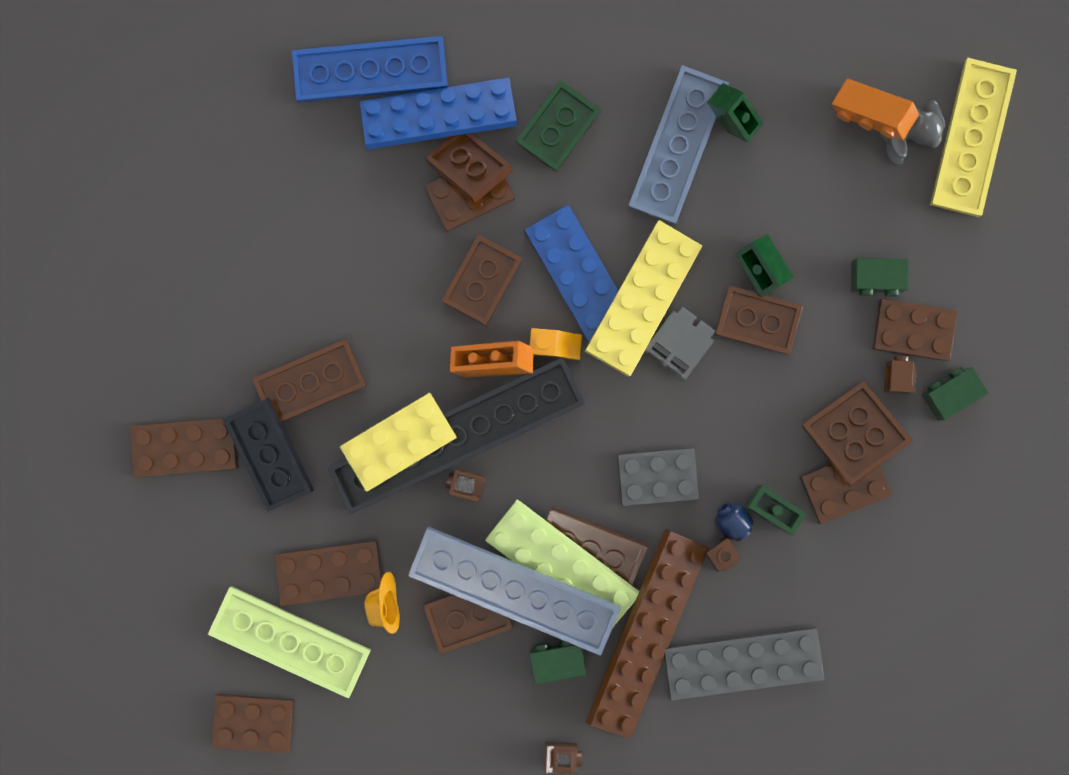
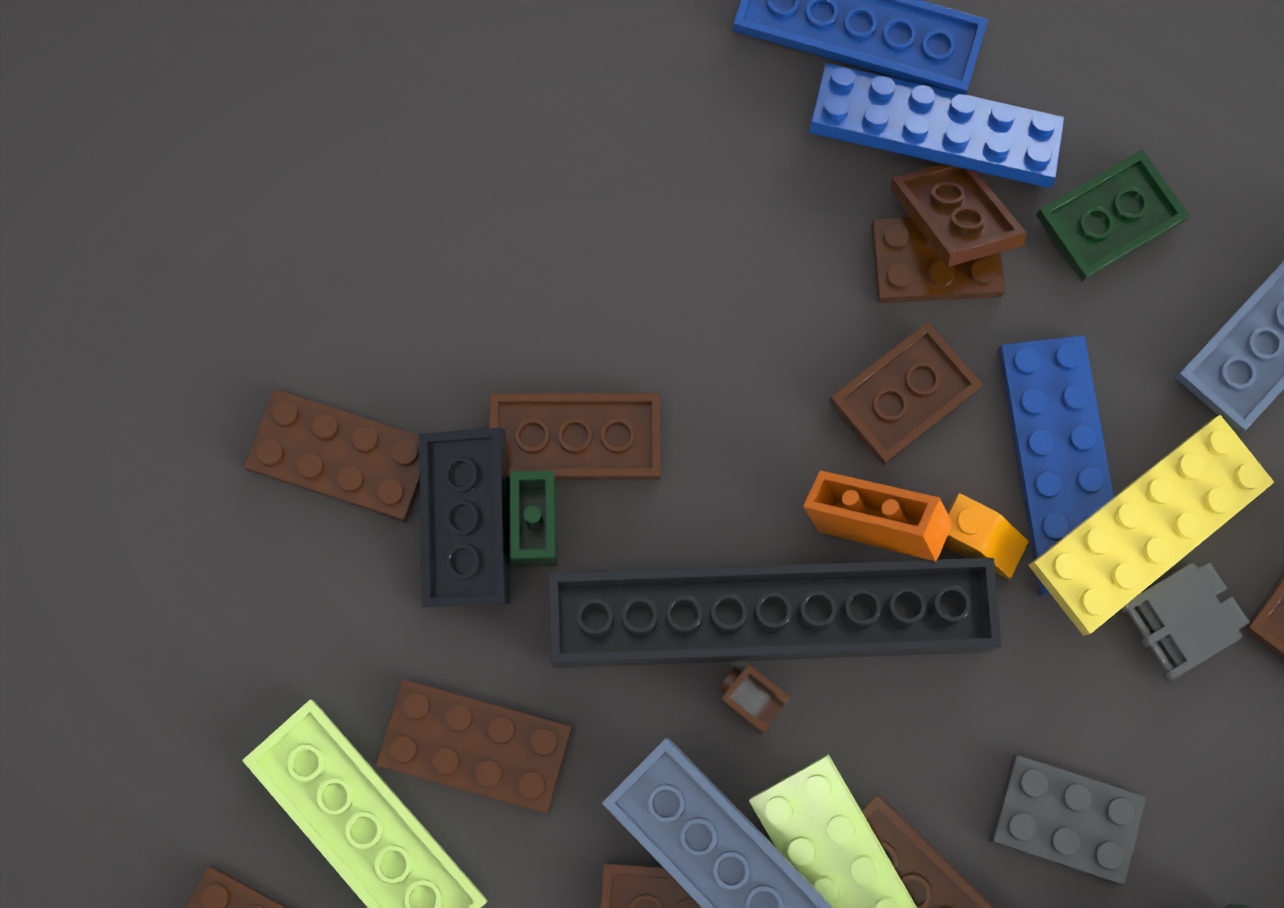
camera: 25 degrees right, 10 degrees down
(306, 439) = (533, 518): none -> dark green brick
(382, 605) = (537, 835): light orange piece -> none
(398, 442) = (678, 580): light yellow plate -> none

